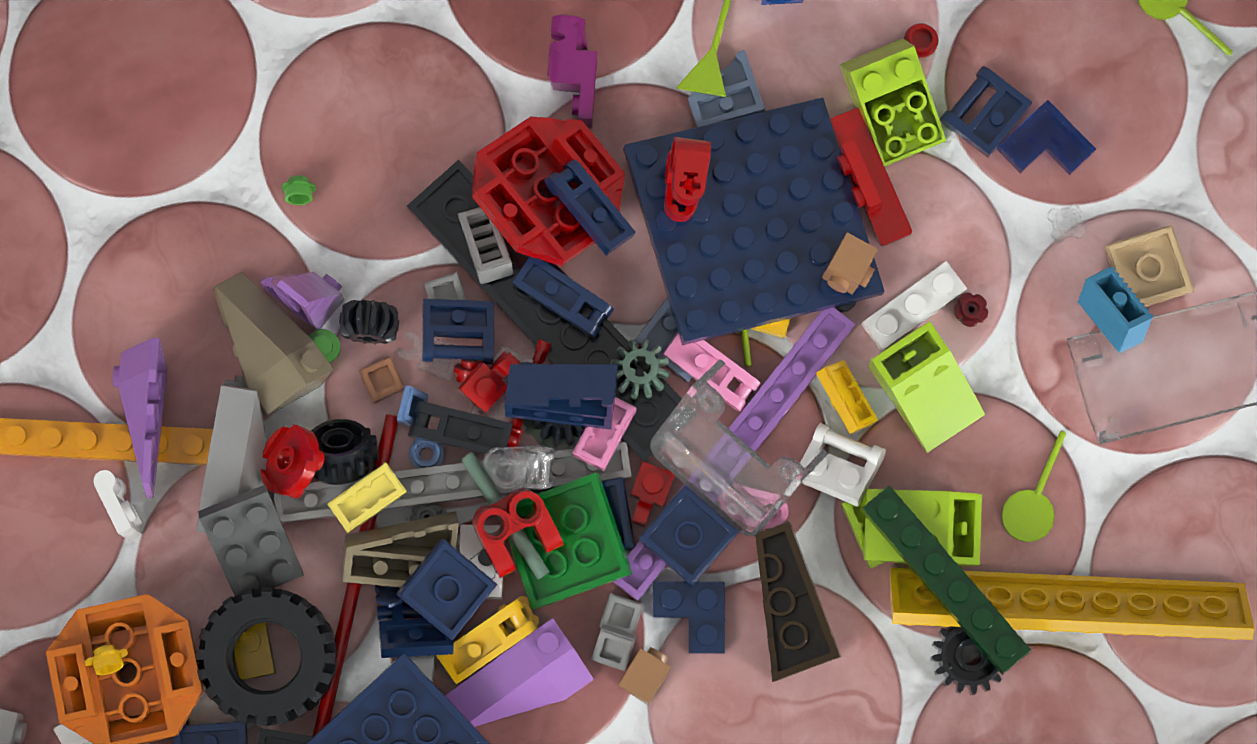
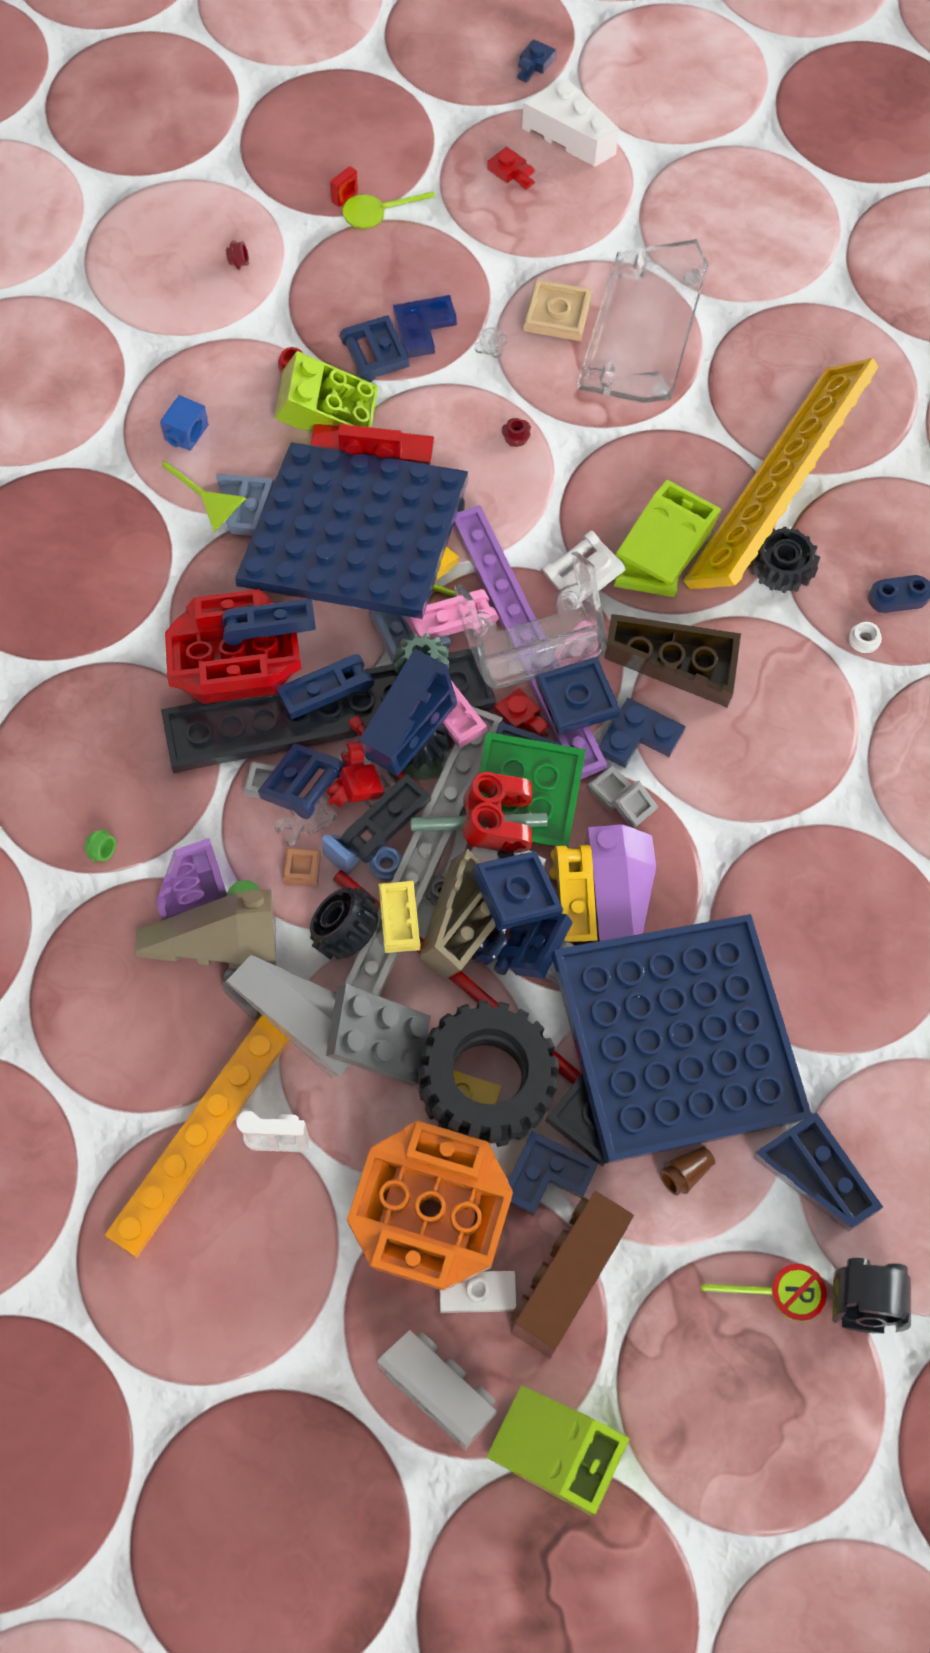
camera: 60 degrees left, 15 degrees down
(106, 659) = (410, 1213): yellow plate -> none
(142, 392) = (189, 1063): medium lavender wedge -> none
(292, 476) = (345, 950): red plate -> none
(369, 321) = (248, 843): black gear -> none
(490, 265) = (264, 727): light grey slope -> none
(527, 467) = (446, 783): clear piece -> none
(571, 66) = (144, 591): magenta plate -> none
(645, 675) = (673, 789): medium nougat brick -> none
(685, 176) = (290, 539): red piece -> none
(846, 396) = (532, 541): yellow plate -> none
(850, 265) = (435, 471): medium nougat brick -> none
(914, 306) = (490, 467): white plate -> none
(927, 387) = (556, 483): lime slope -> none
(946, 580) = (723, 527): dark green plate -> none
(1029, 513) = (691, 473): lime piece -> none
(1115, 309) = (578, 335): dark azure brick -> none

